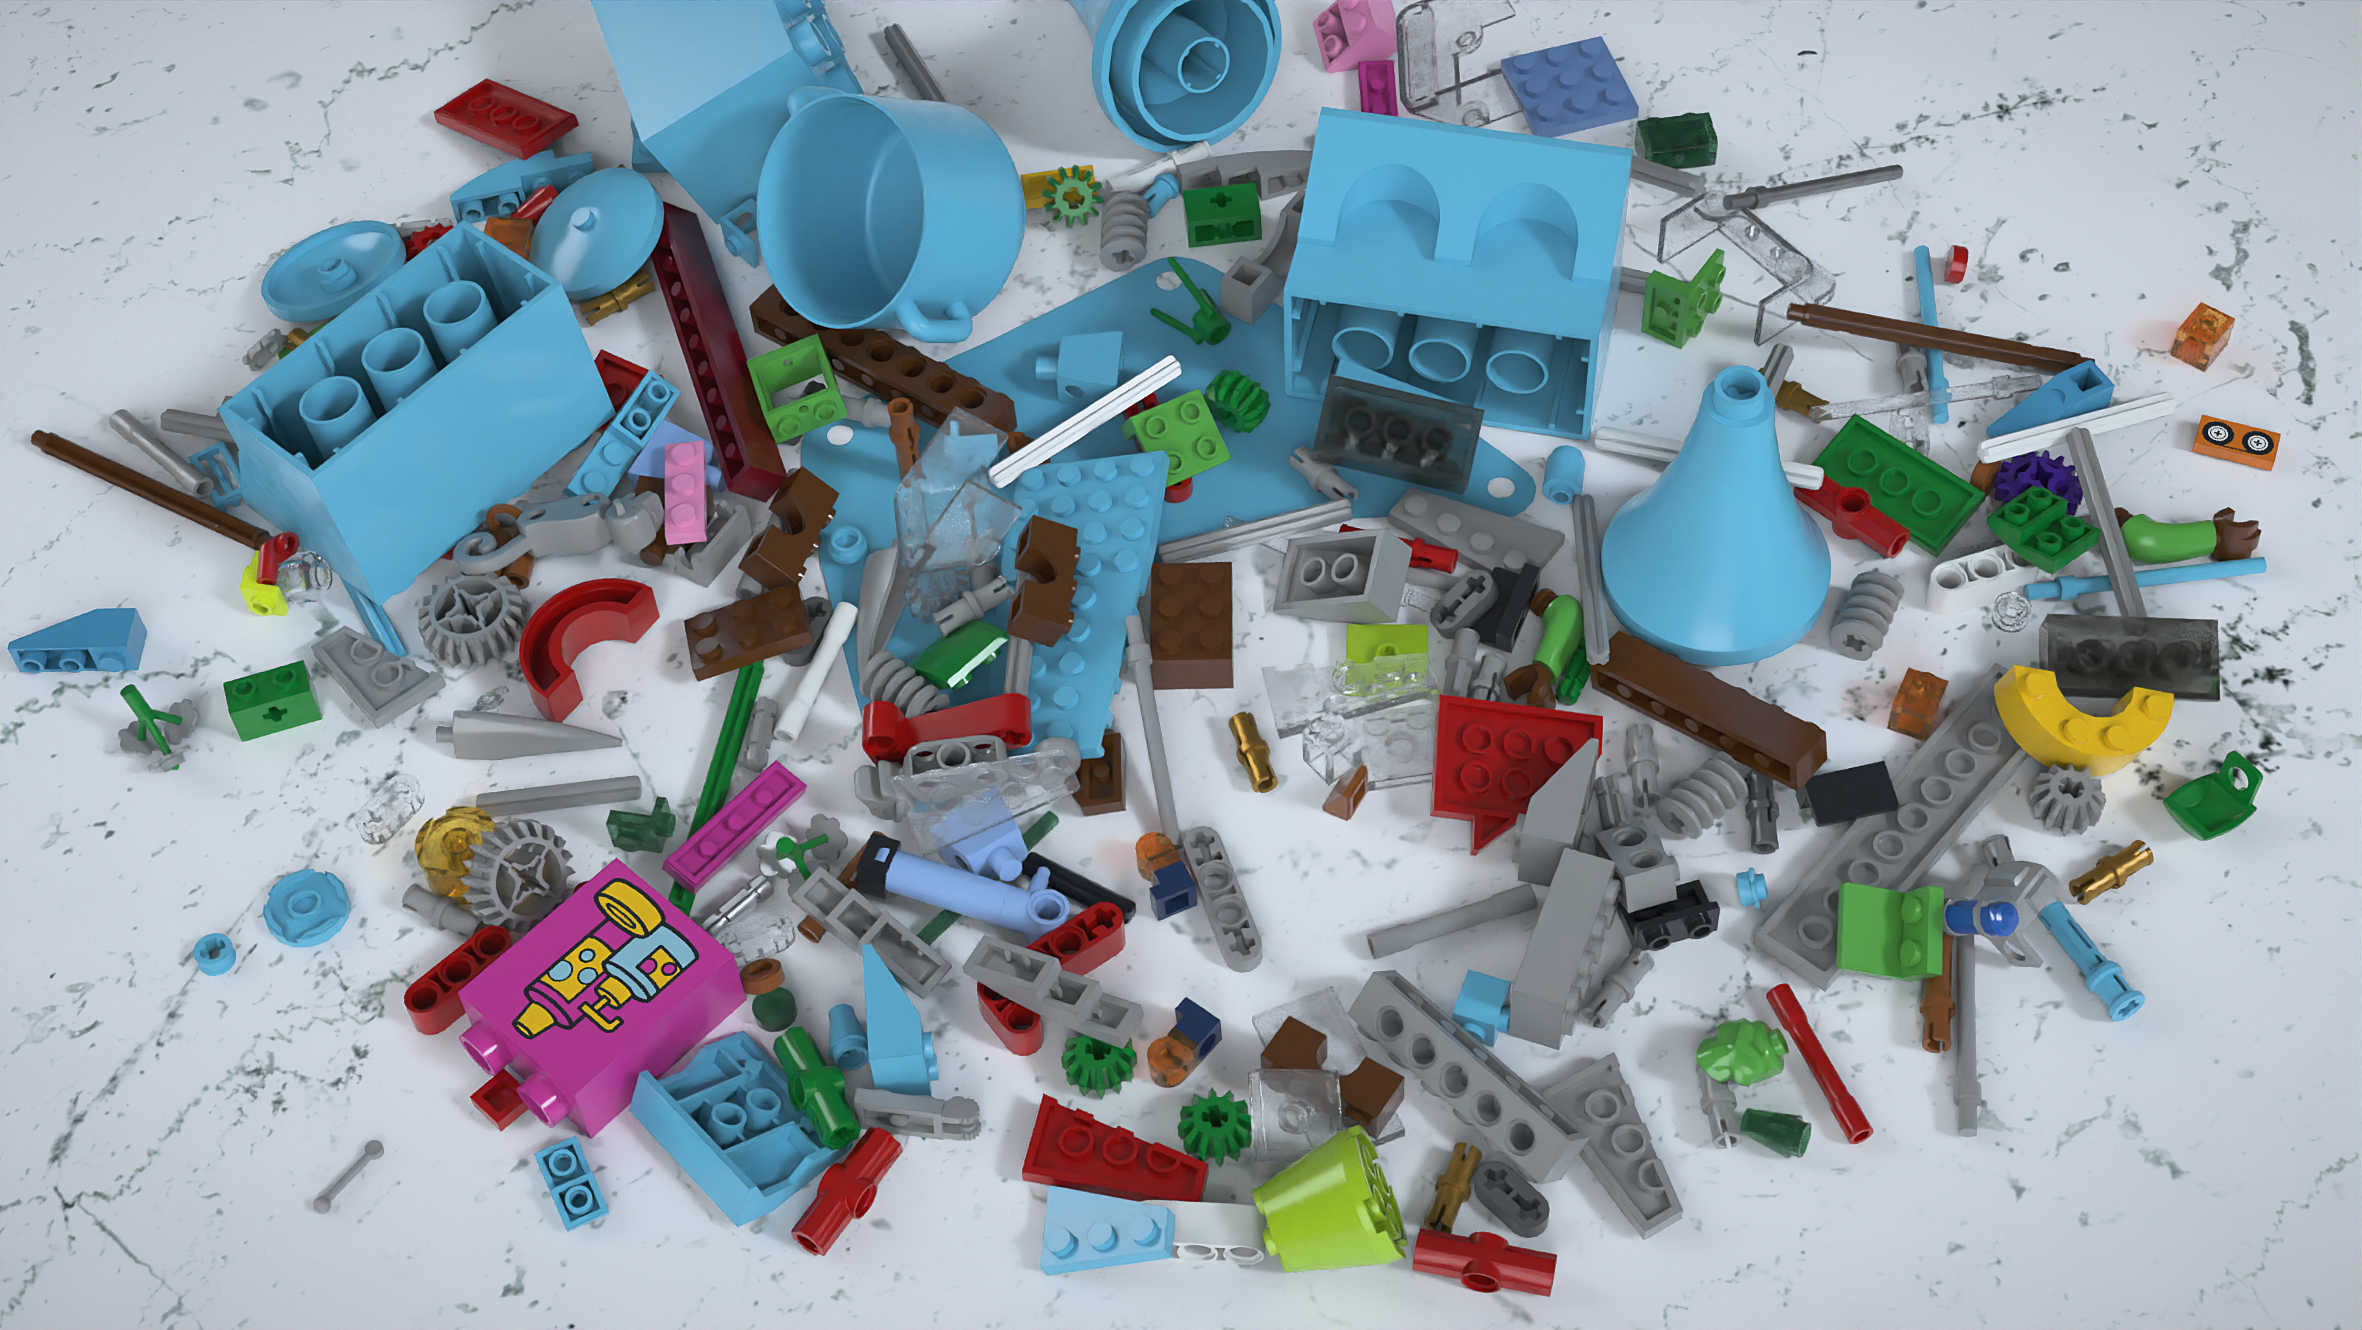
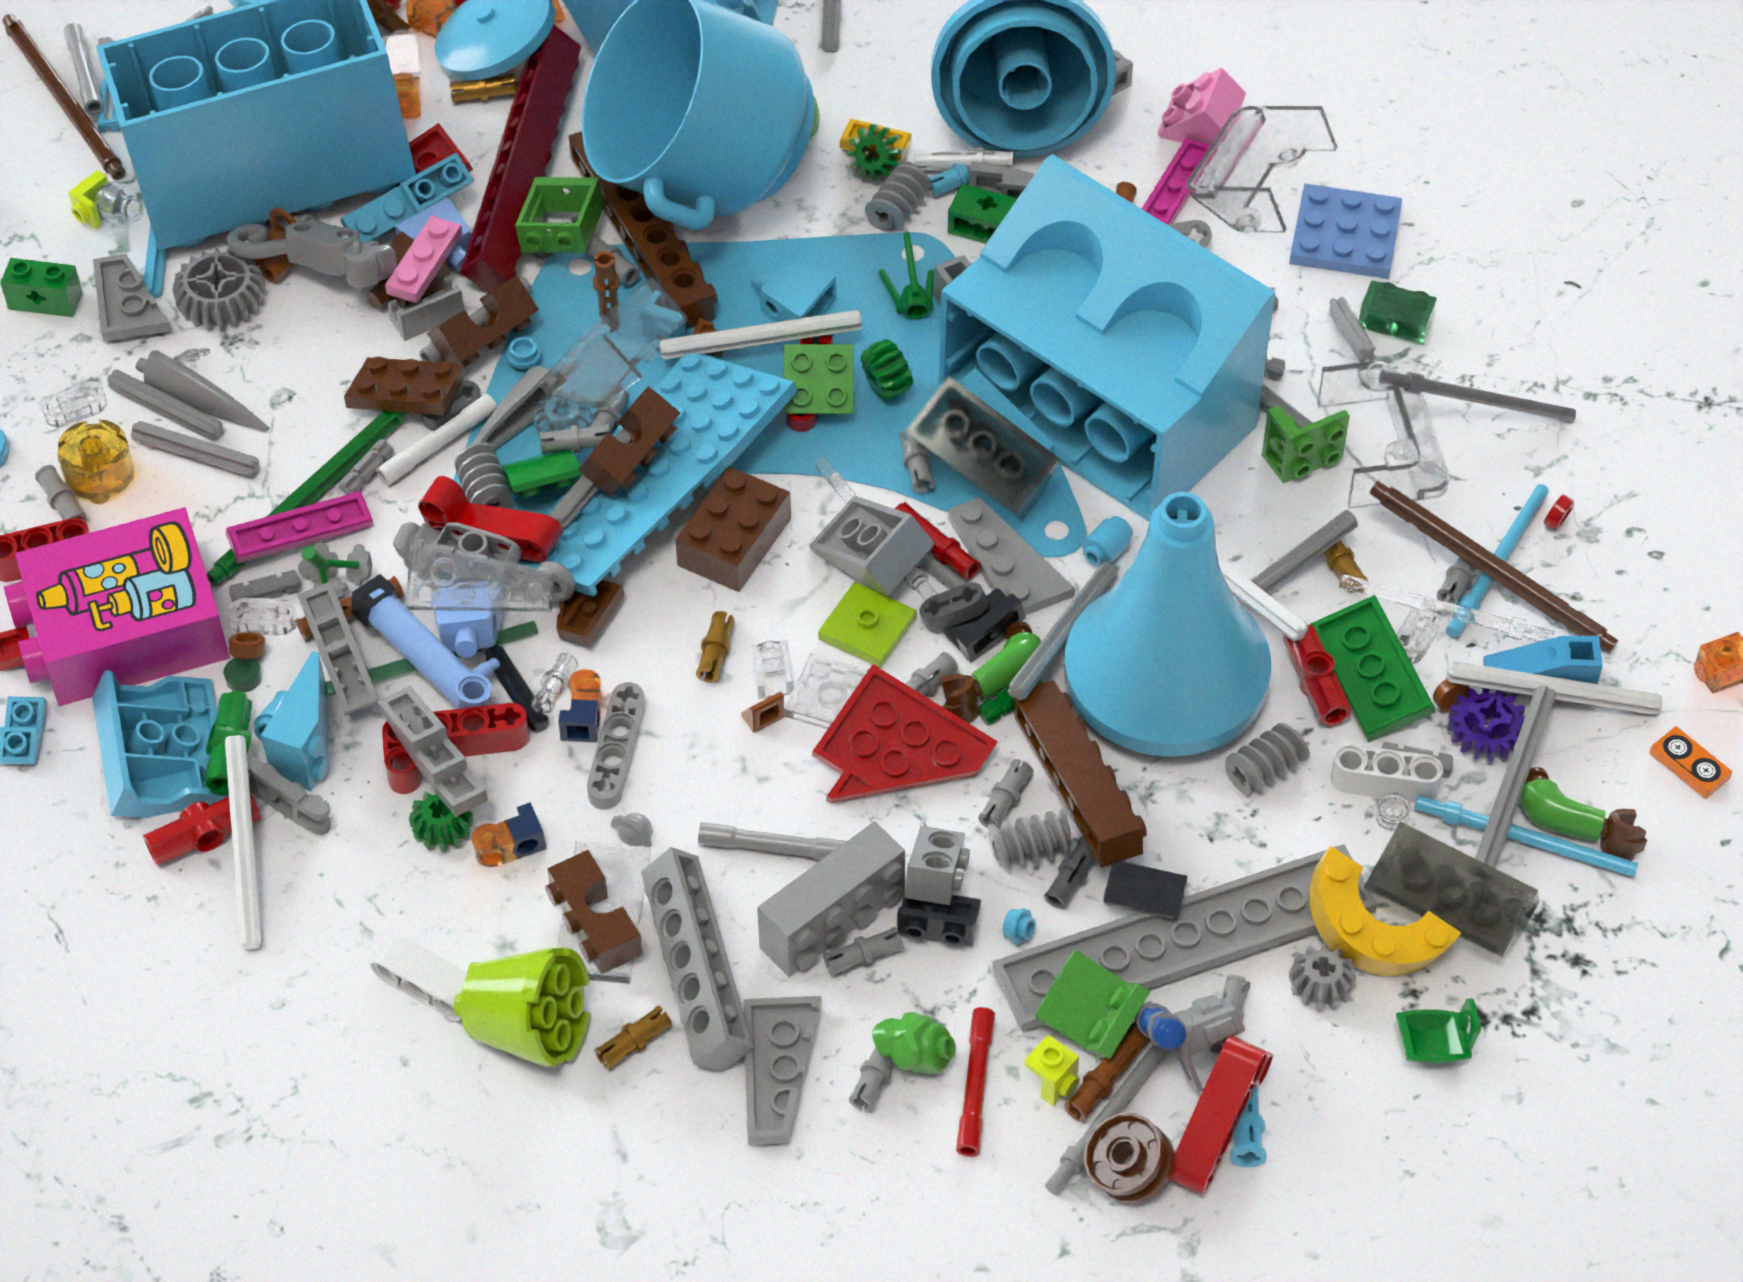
camera: 25 degrees right, 0 degrees up
(274, 553) = (102, 177): red arm -> none
(493, 765) = (165, 404): none -> light grey axle
(498, 888) = (129, 481): light grey gear -> none
(572, 623) = (275, 325): red brick -> none
(642, 831) = (233, 501): clear green bracket -> none
(911, 1185) = (243, 843): none -> white axle
(1092, 1157) = (392, 889): red wing -> none
(1102, 1232) = (354, 942): medium azure wing -> none
(1120, 864) = (554, 684): none -> clear pin
(1139, 658) = (666, 534): light grey bar -> none
(1215, 1142) = (490, 908): green gear -> none
(1256, 531) = (832, 478): light grey axle -> none
(1292, 1111) = (545, 918): clear plate -> none
(1300, 976) = (633, 829): none -> light grey piece
(1348, 687) = (815, 629): clear wing -> none
(1461, 662) = (919, 652): light grey axle -> none
(1483, 1007) = (739, 917): medium azure brick -> none
(1484, 1262) = (616, 1101): red piece -> none
(1517, 1194) = (679, 1065): dark grey beam -> none
(1555, 817) = (906, 795): light grey slope -> none
(1611, 803) = (959, 810): light grey axle -> none
(1778, 1131) = (906, 1117): clear green cone -> none
(1893, 1006) = (1056, 1067): none -> neon yellow bracket
(1917, 704) = (1257, 846): clear orange brick -> none
(2012, 1040) = (1111, 1145): none -> wheel
(2041, 530) = (1454, 755): green slope -> none
(2083, 977) = (1218, 1112): none -> red beam
(2111, 872) = (1317, 1049): pearl gold pin -> none

